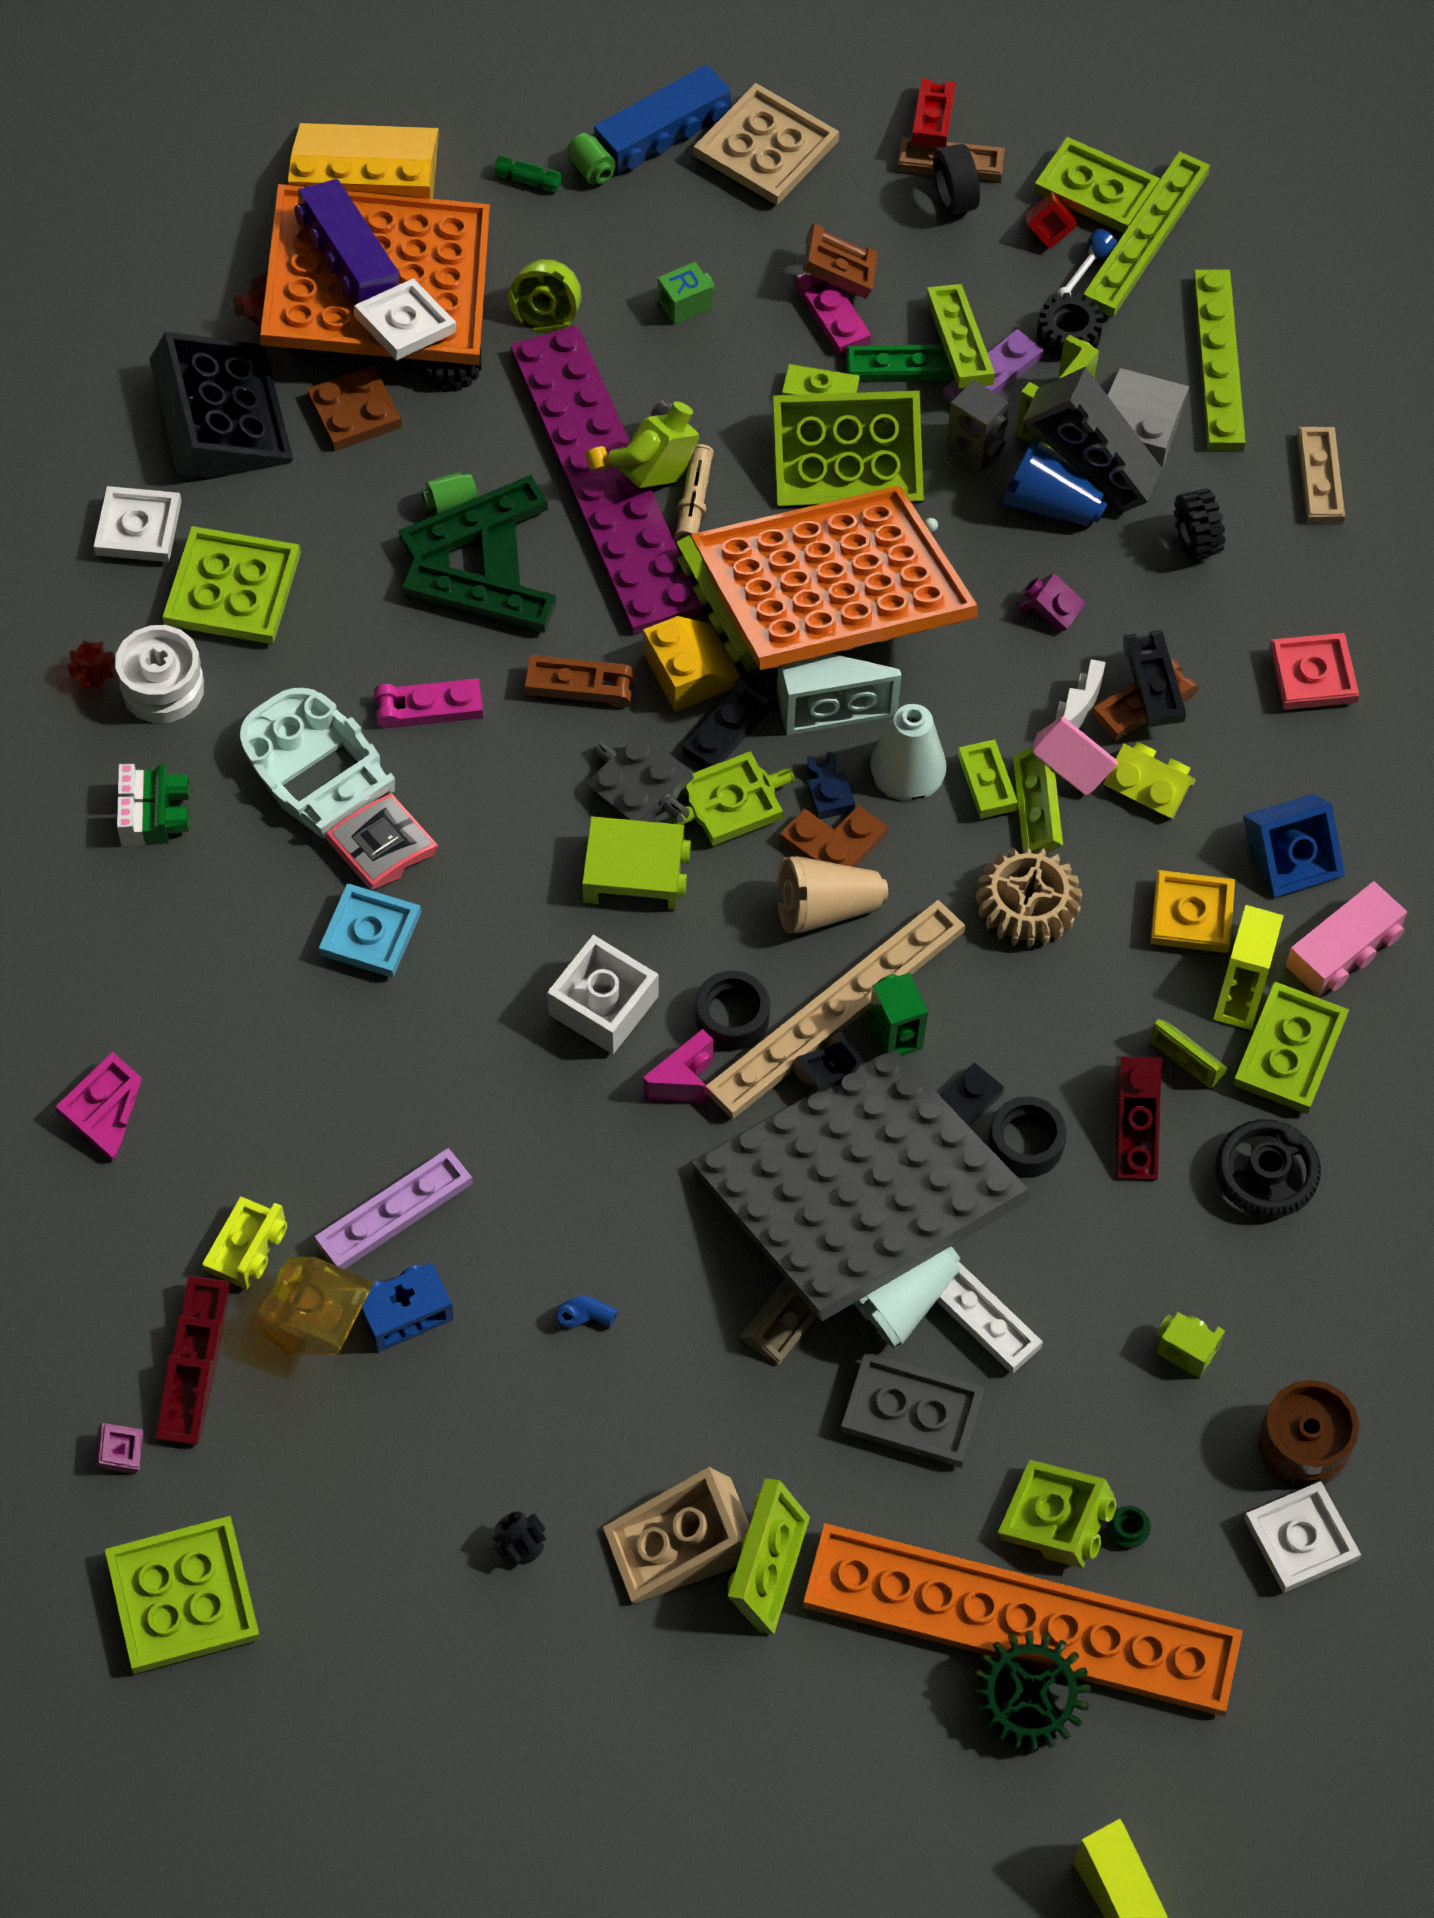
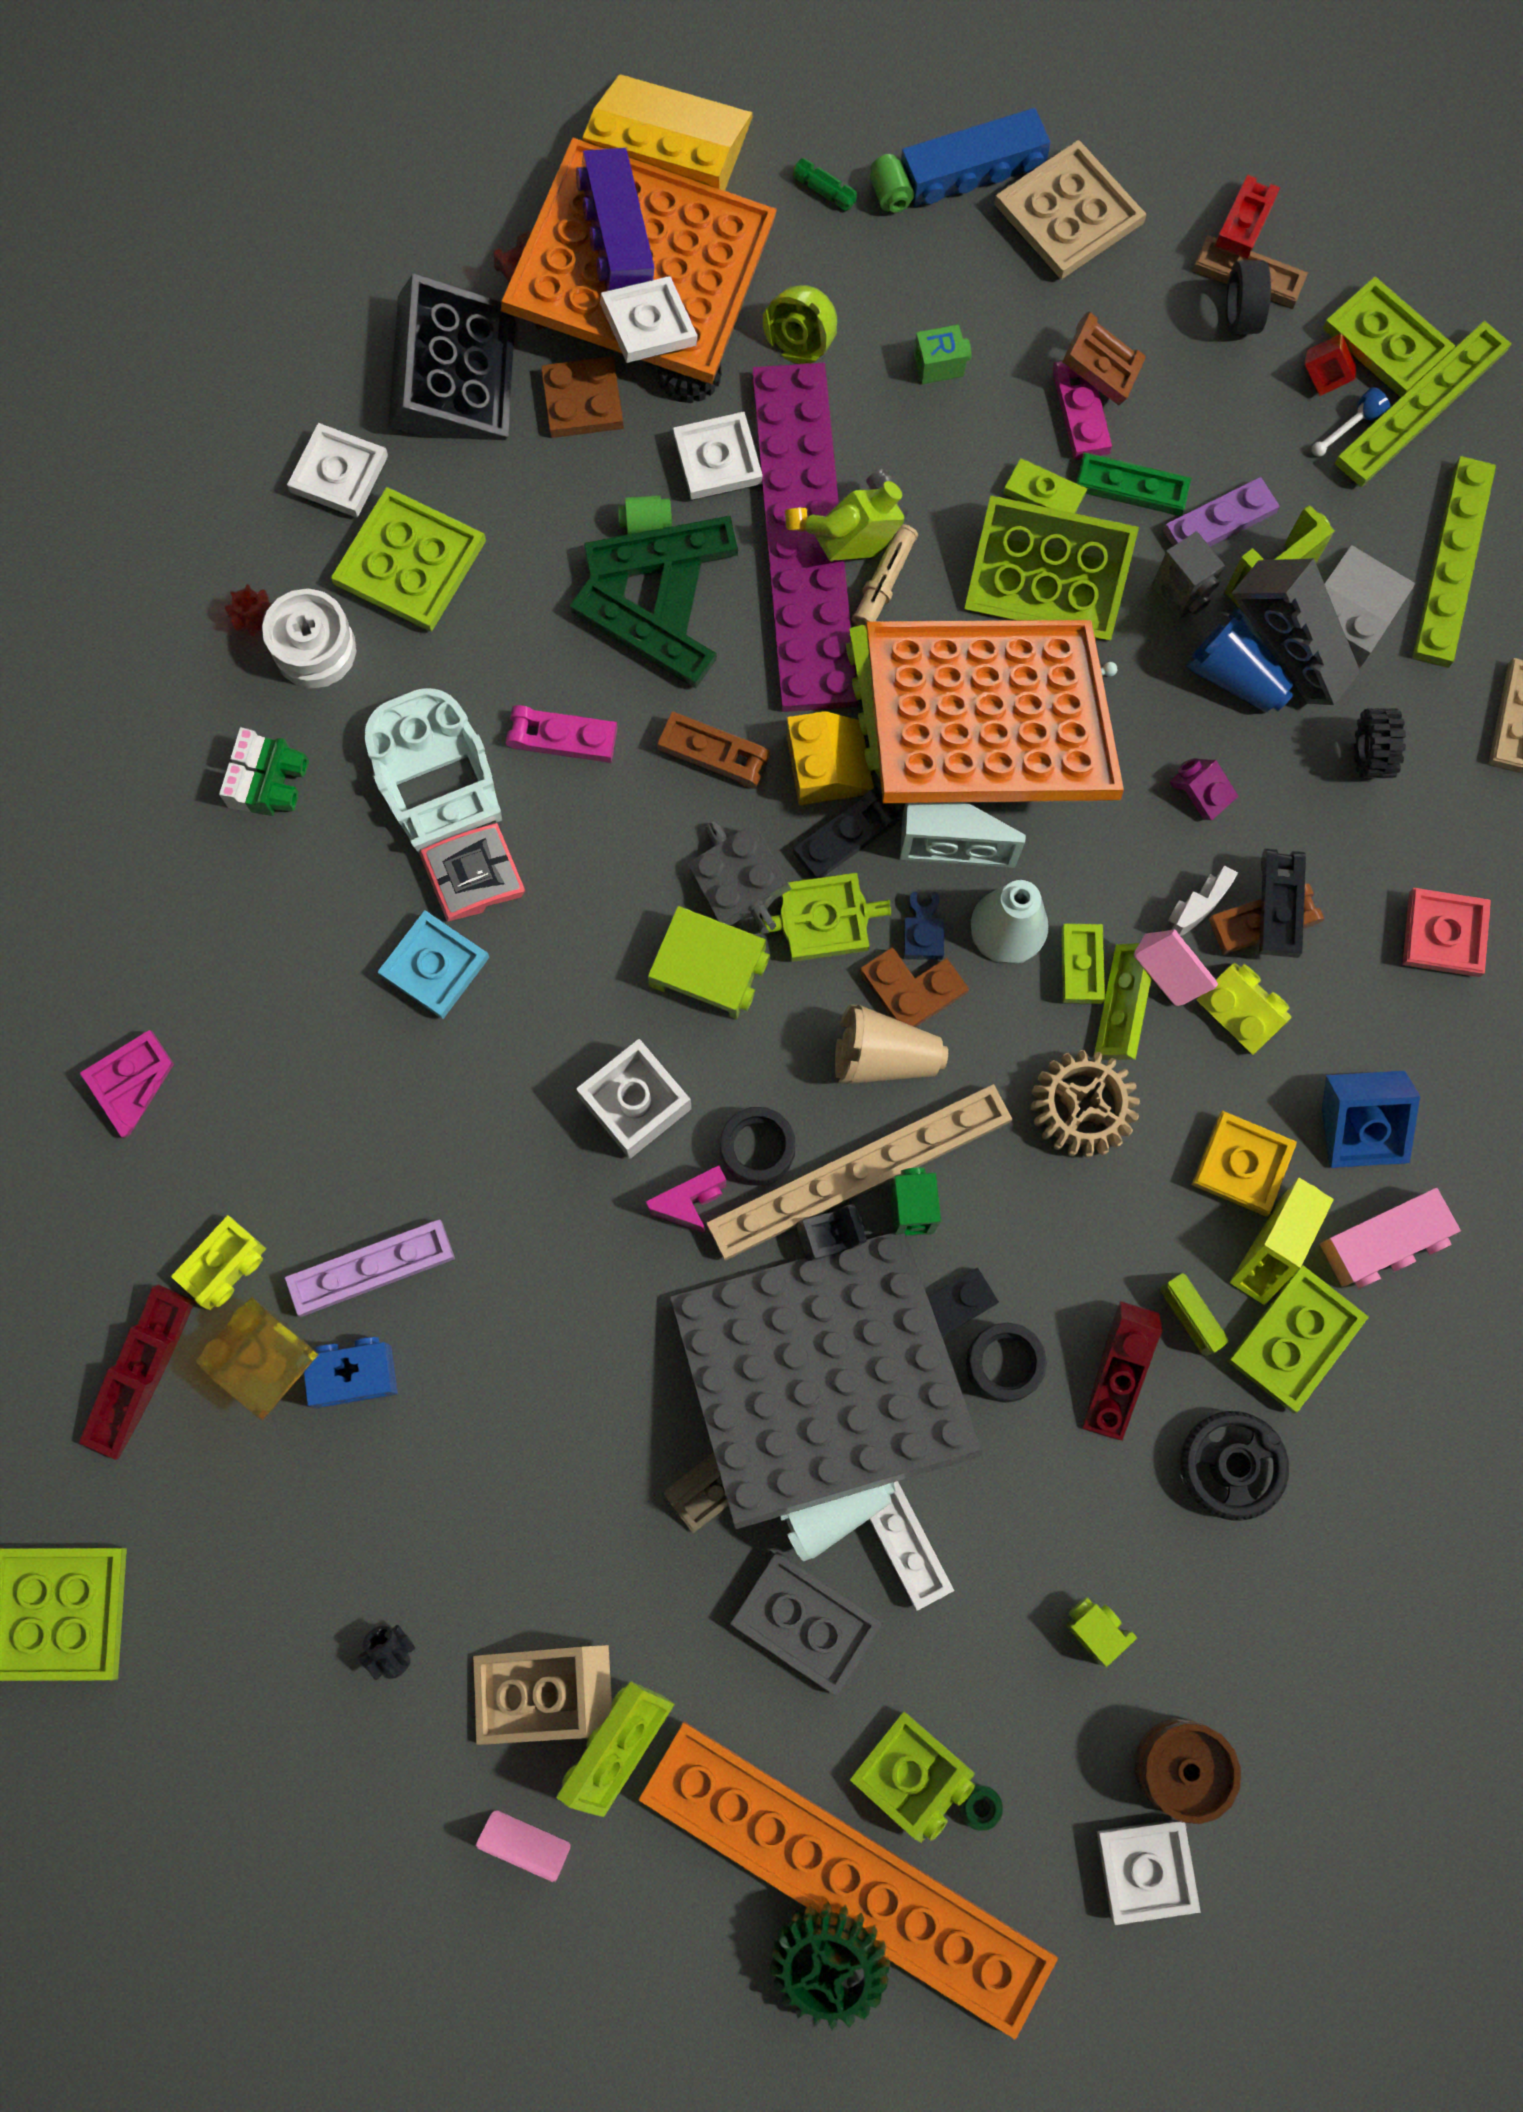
camera: 15 degrees right, 15 degrees up
(118, 1448) = (40, 1444): magenta tile -> none
(501, 427) = (717, 455): none -> white plate
(584, 1309) = (519, 1423): blue arm -> none
(705, 1679) = (524, 1845): none -> bright pink slope
(960, 335) = (1200, 472): lime plate -> none
(1068, 310) = (1318, 469): black tyre -> none

